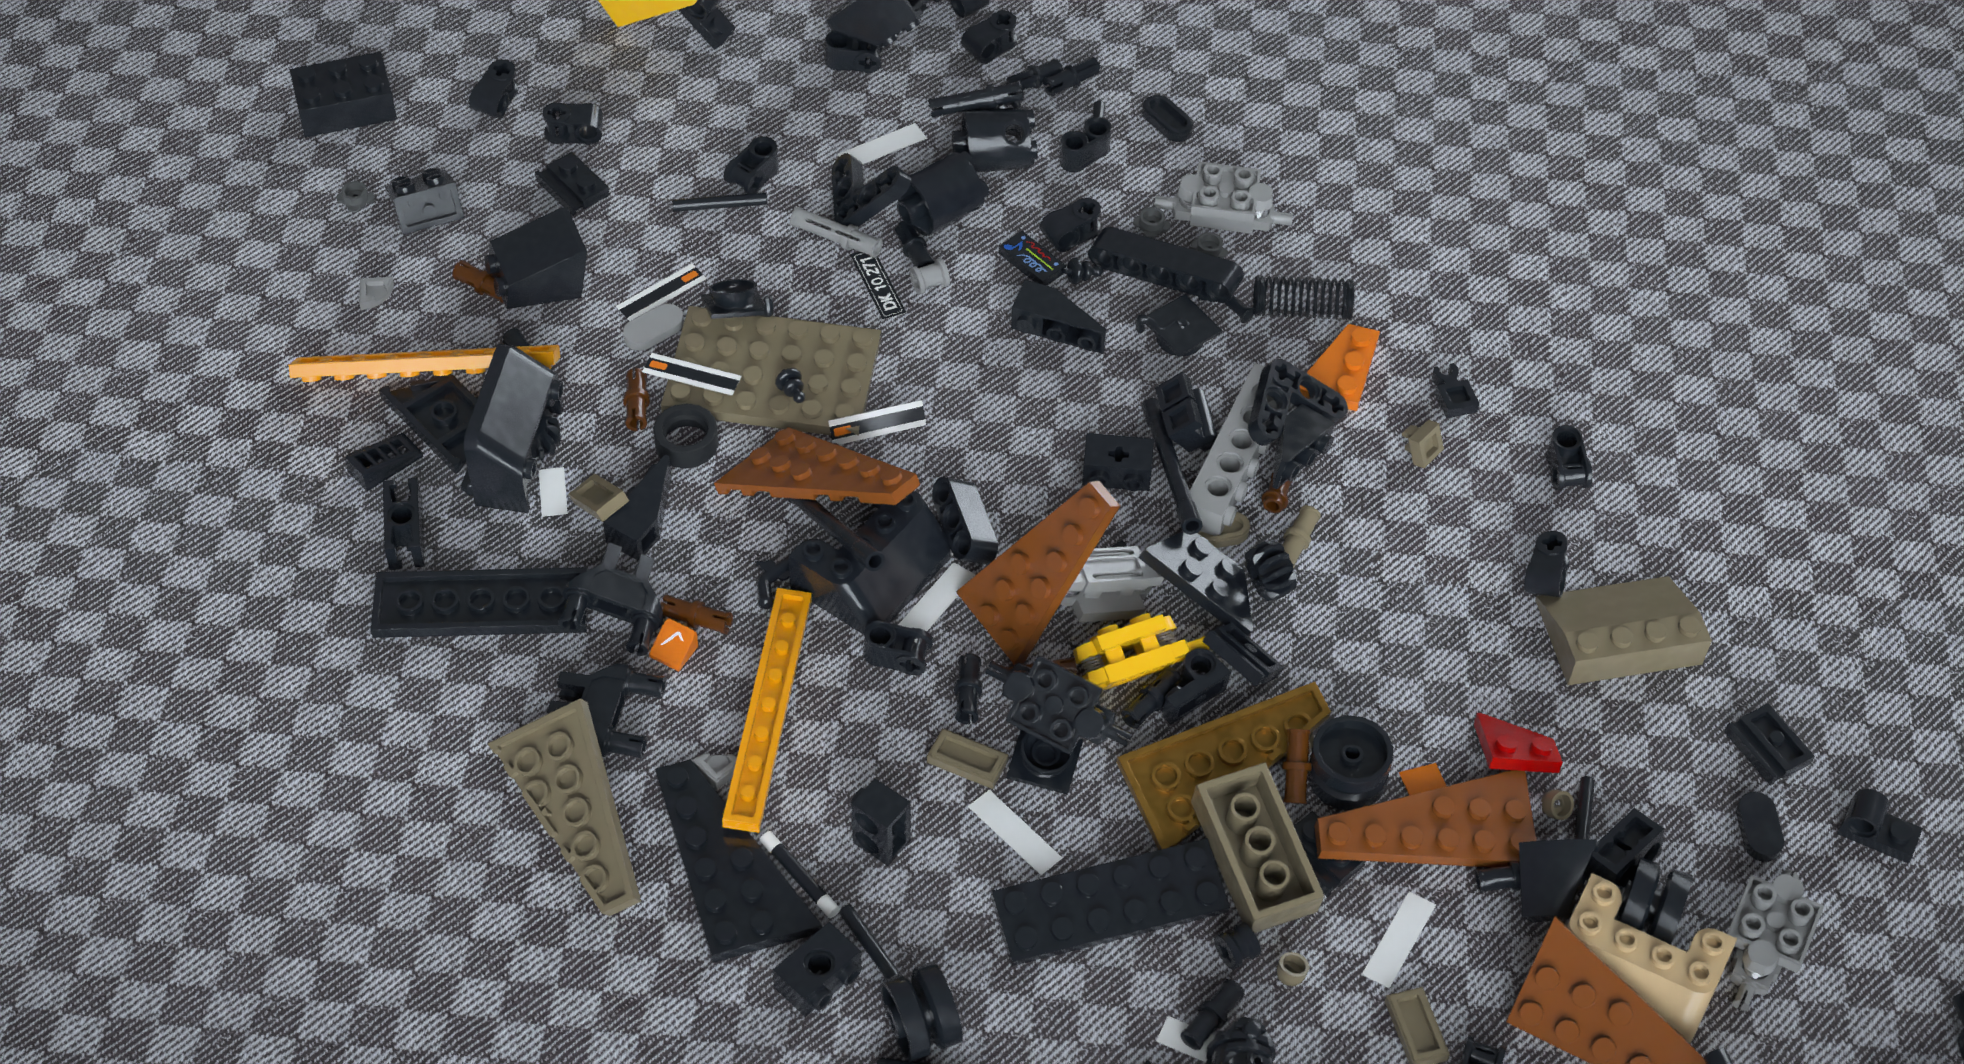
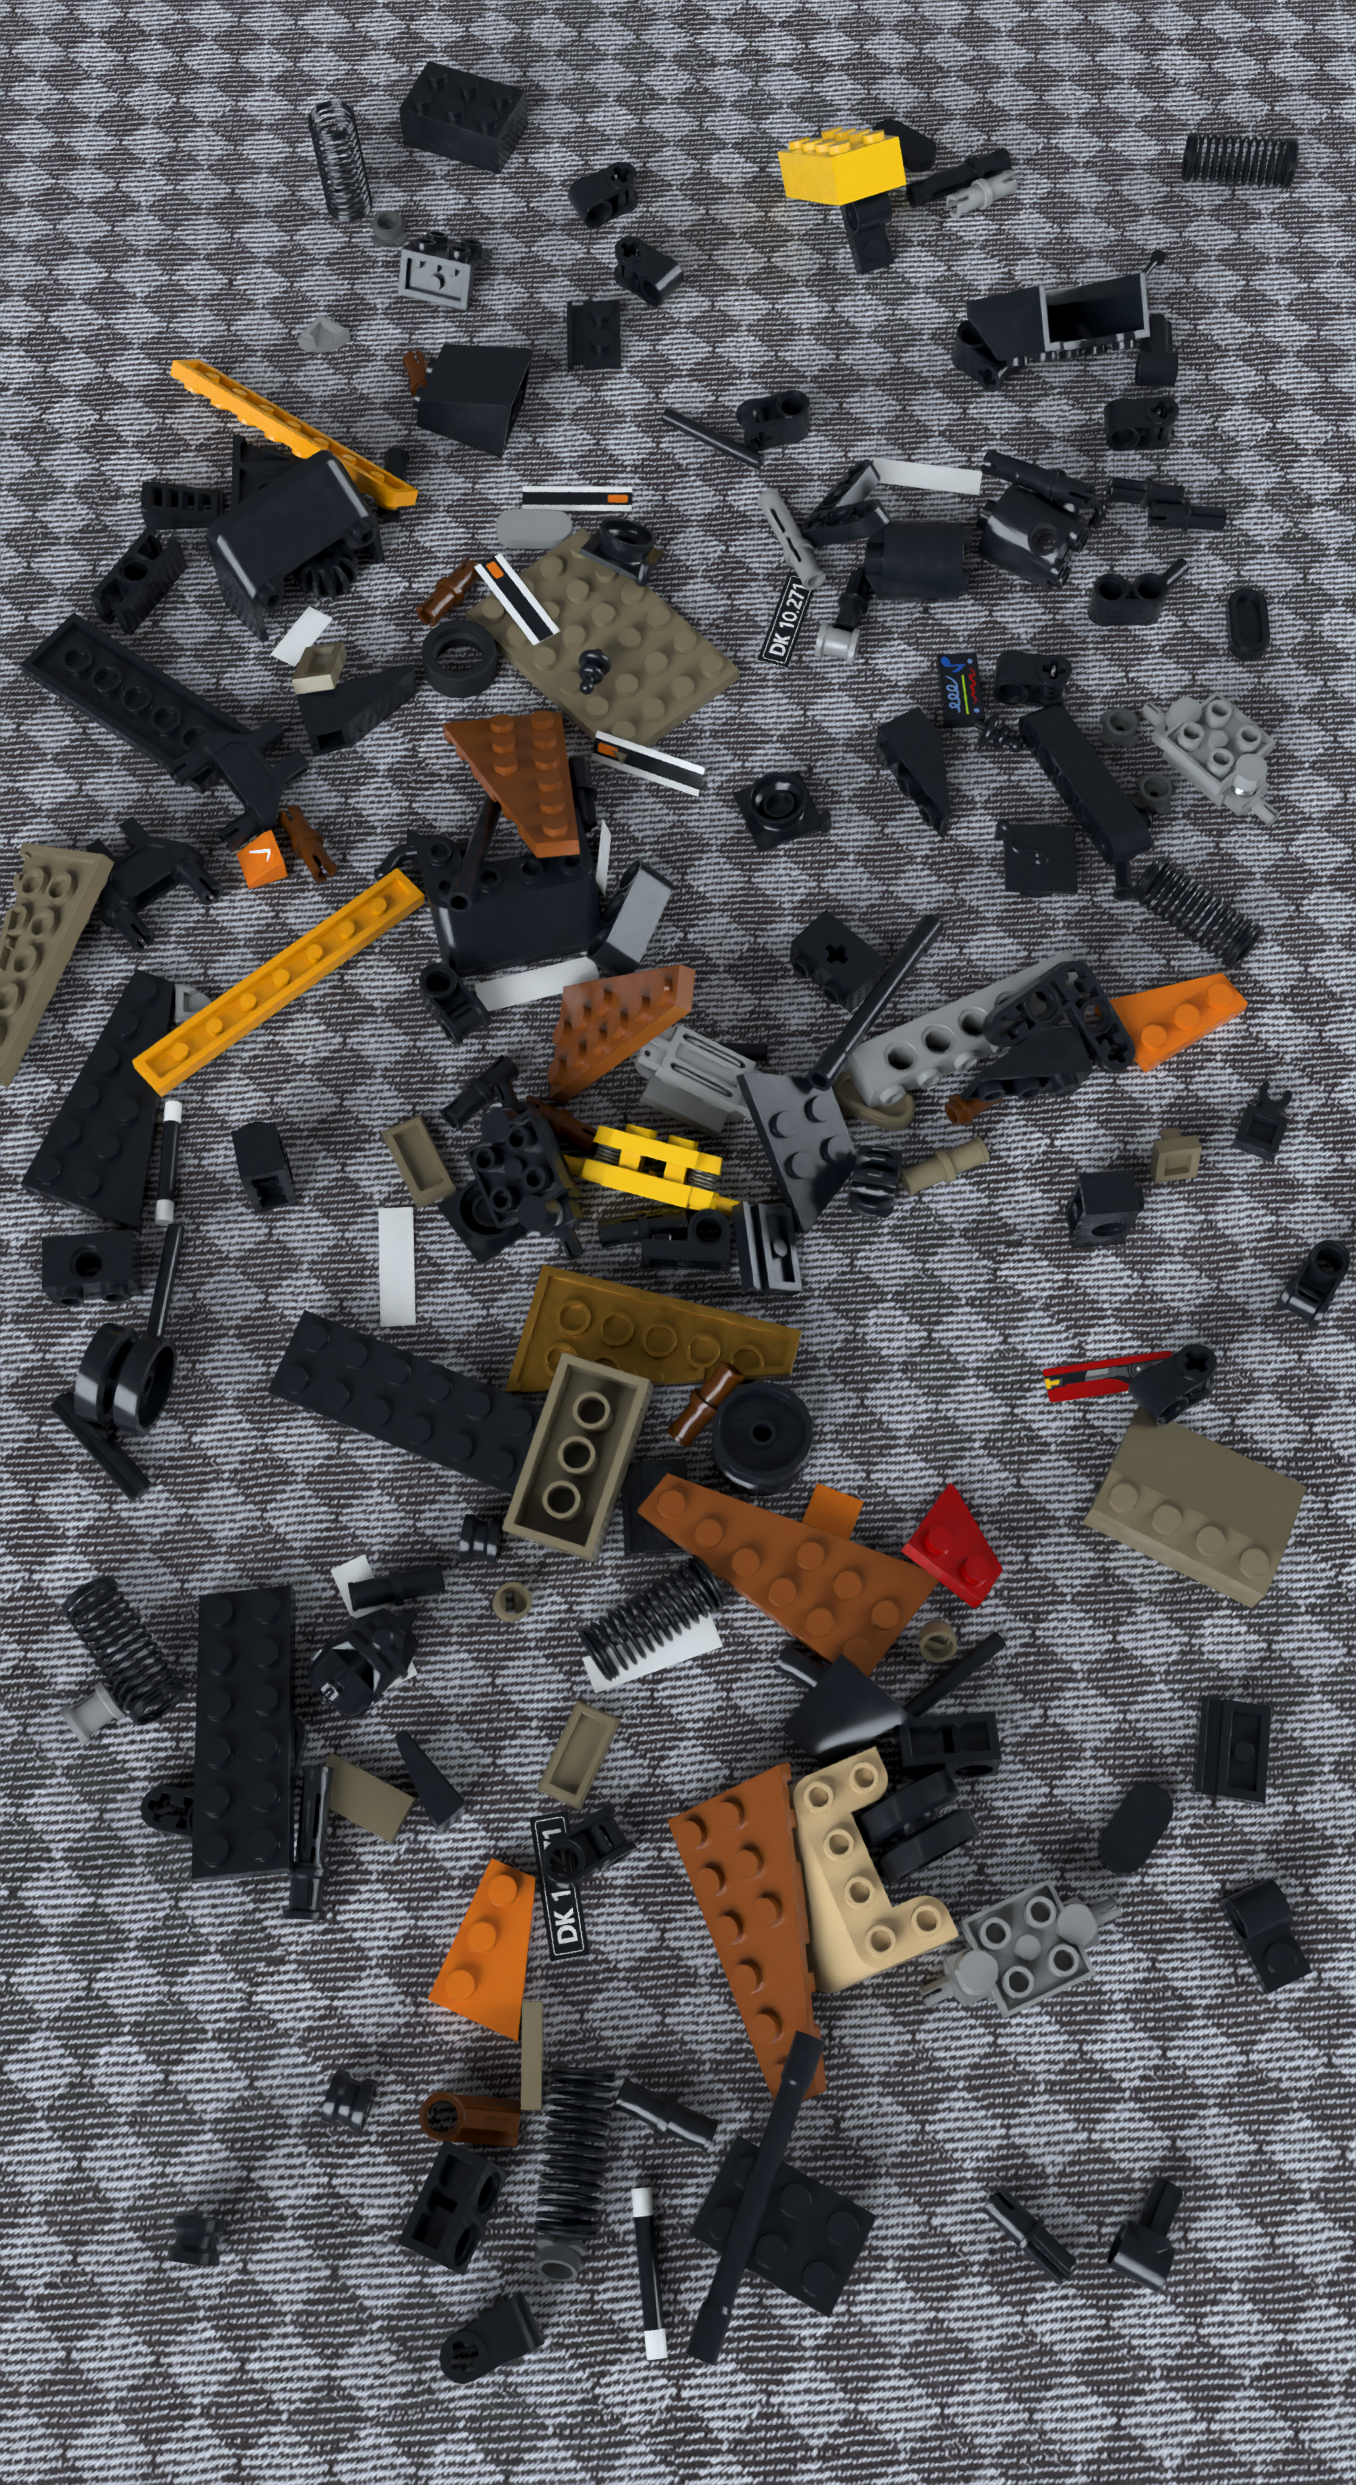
camera: 40 degrees right, 15 degrees up
(275, 151) = (330, 137): none -> black piece
(989, 398) = (780, 810): none -> black hat
(1186, 413) = (945, 956): black hips -> none
(1393, 881) = (706, 1585): none -> black piece
(1417, 495) = (1103, 1208): none -> black brick
(1499, 596) = (1097, 1377): none -> sticker

